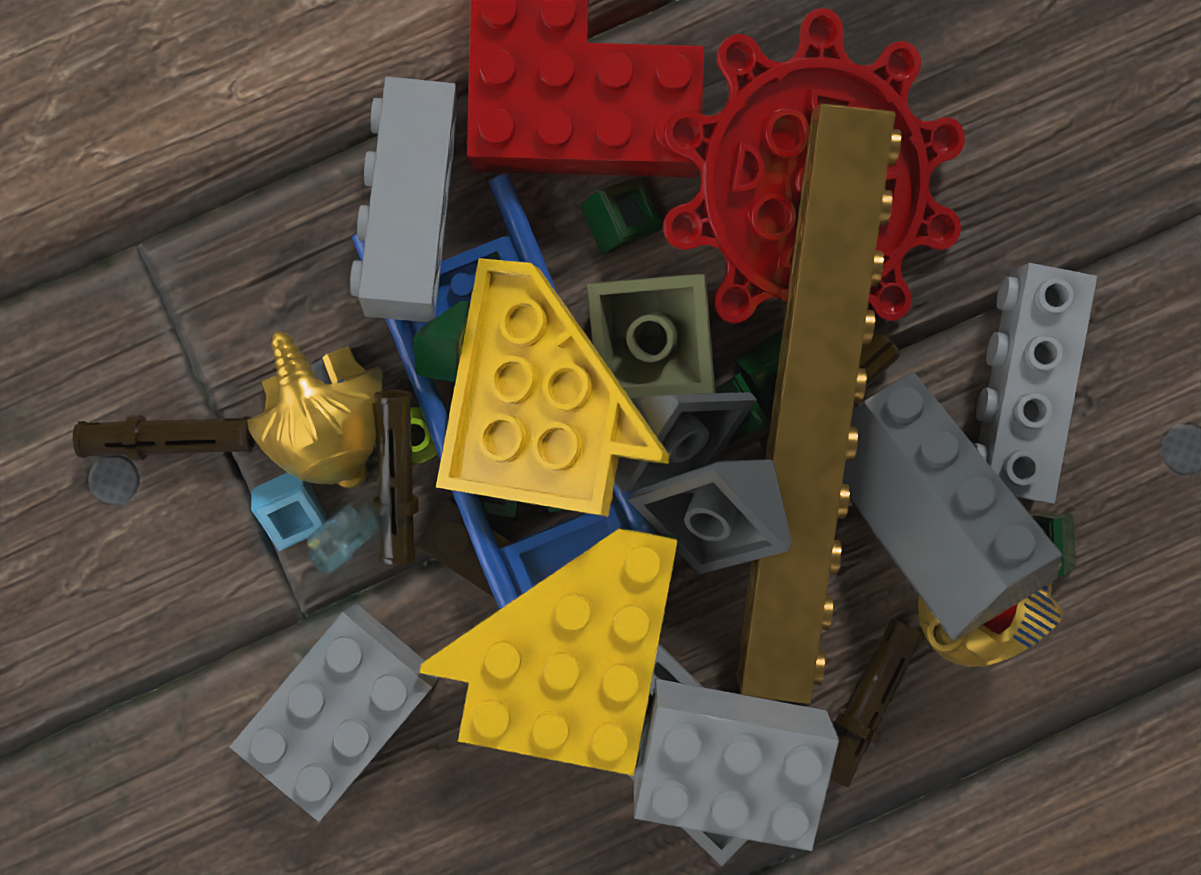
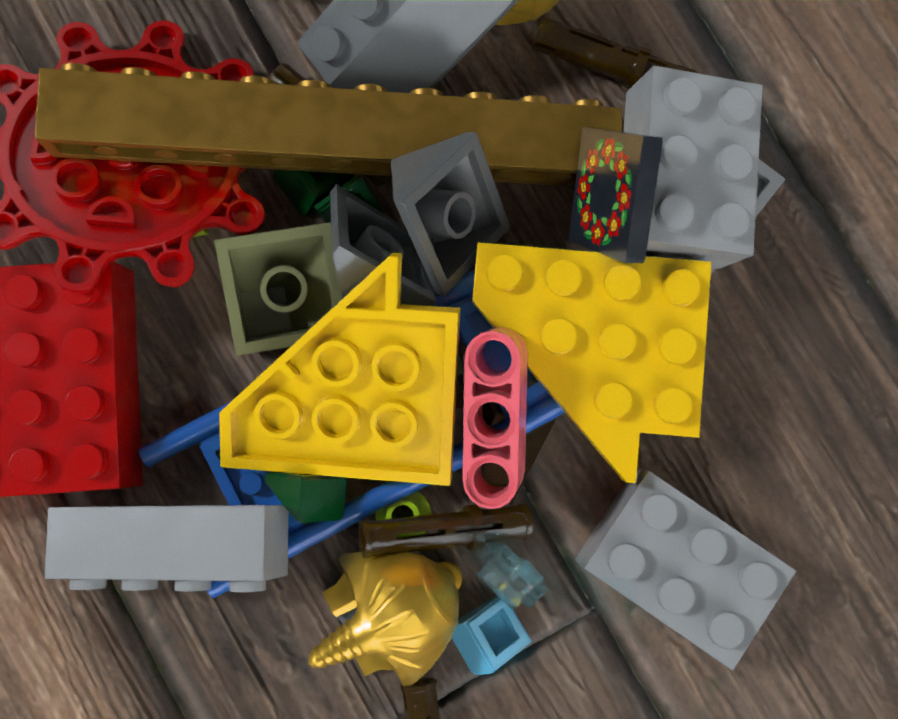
camera: 90 degrees left, 5 degrees down
(471, 531) = (481, 441): none -> coral beam
(621, 215) = (173, 338): dark green slope -> none
(712, 685) = (615, 192): none -> black tile

